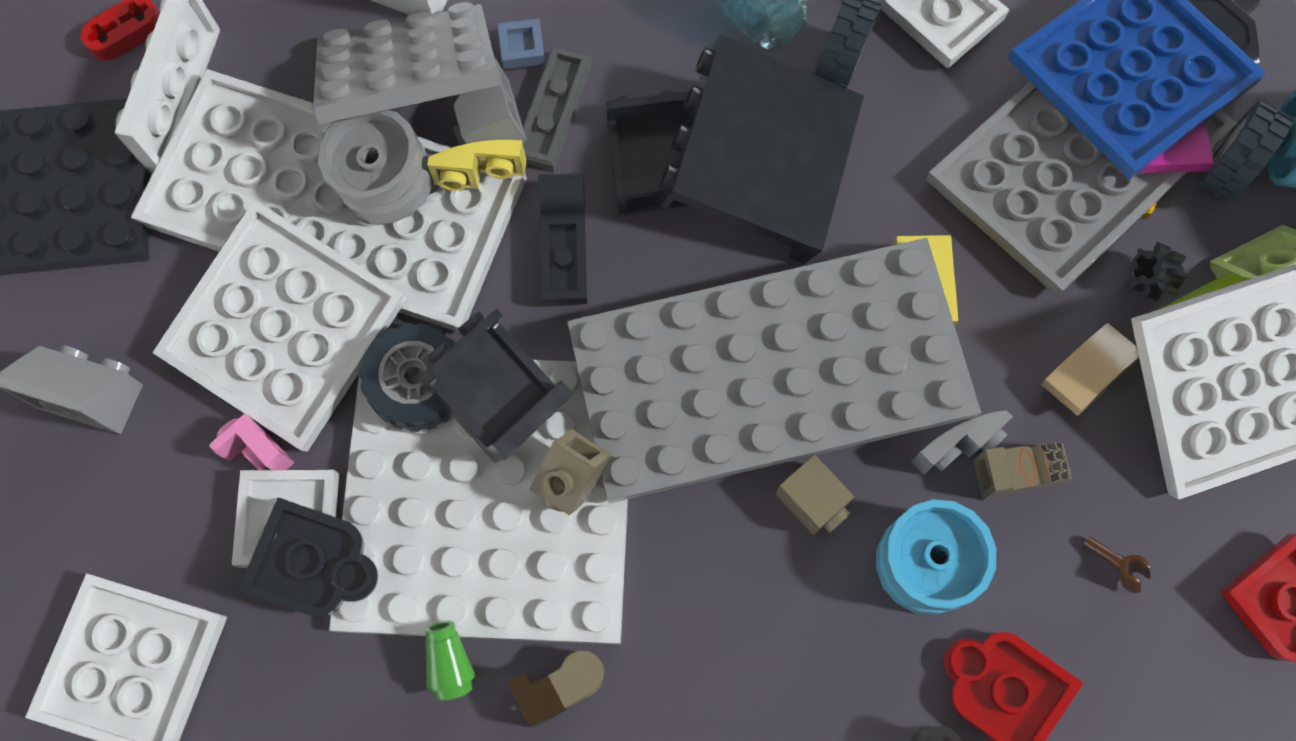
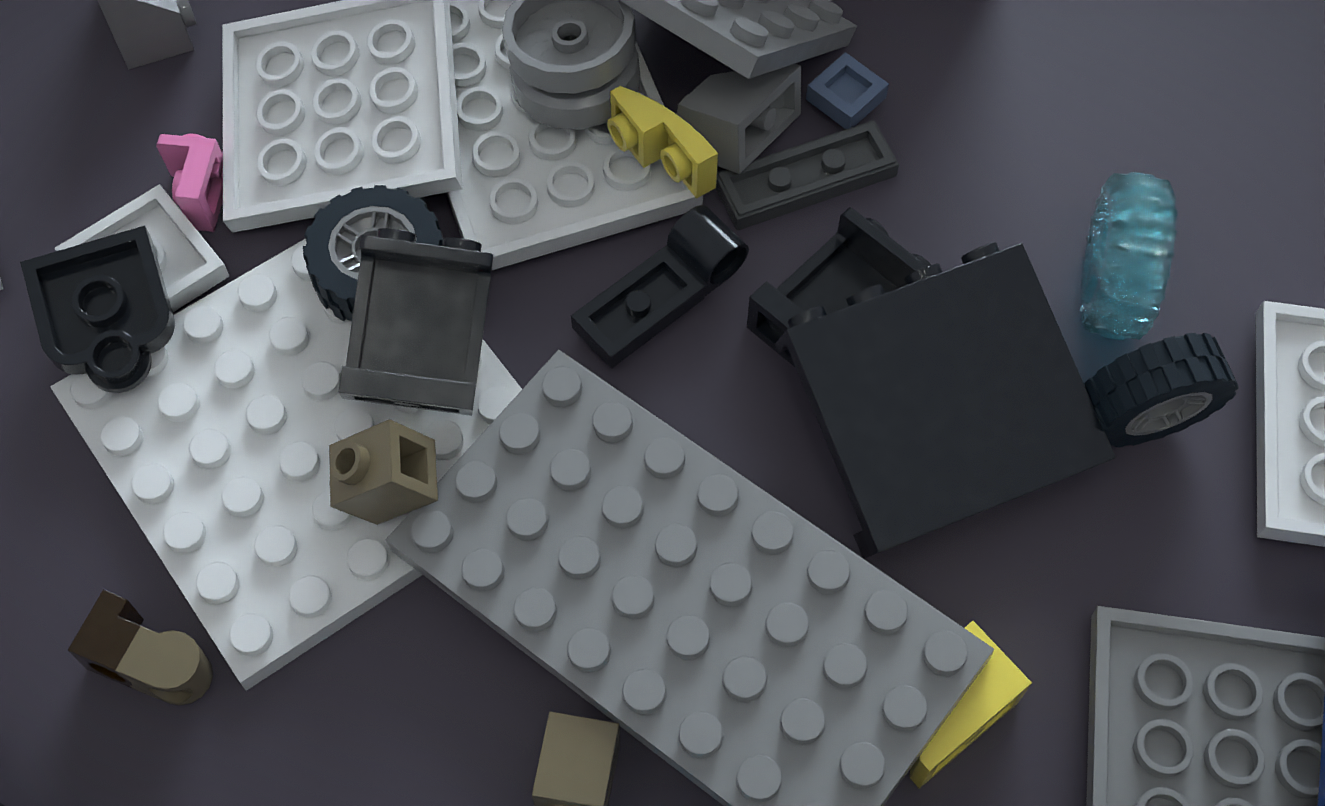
camera: 50 degrees right, 10 degrees down
(447, 663) = (89, 518): bright green cone -> none

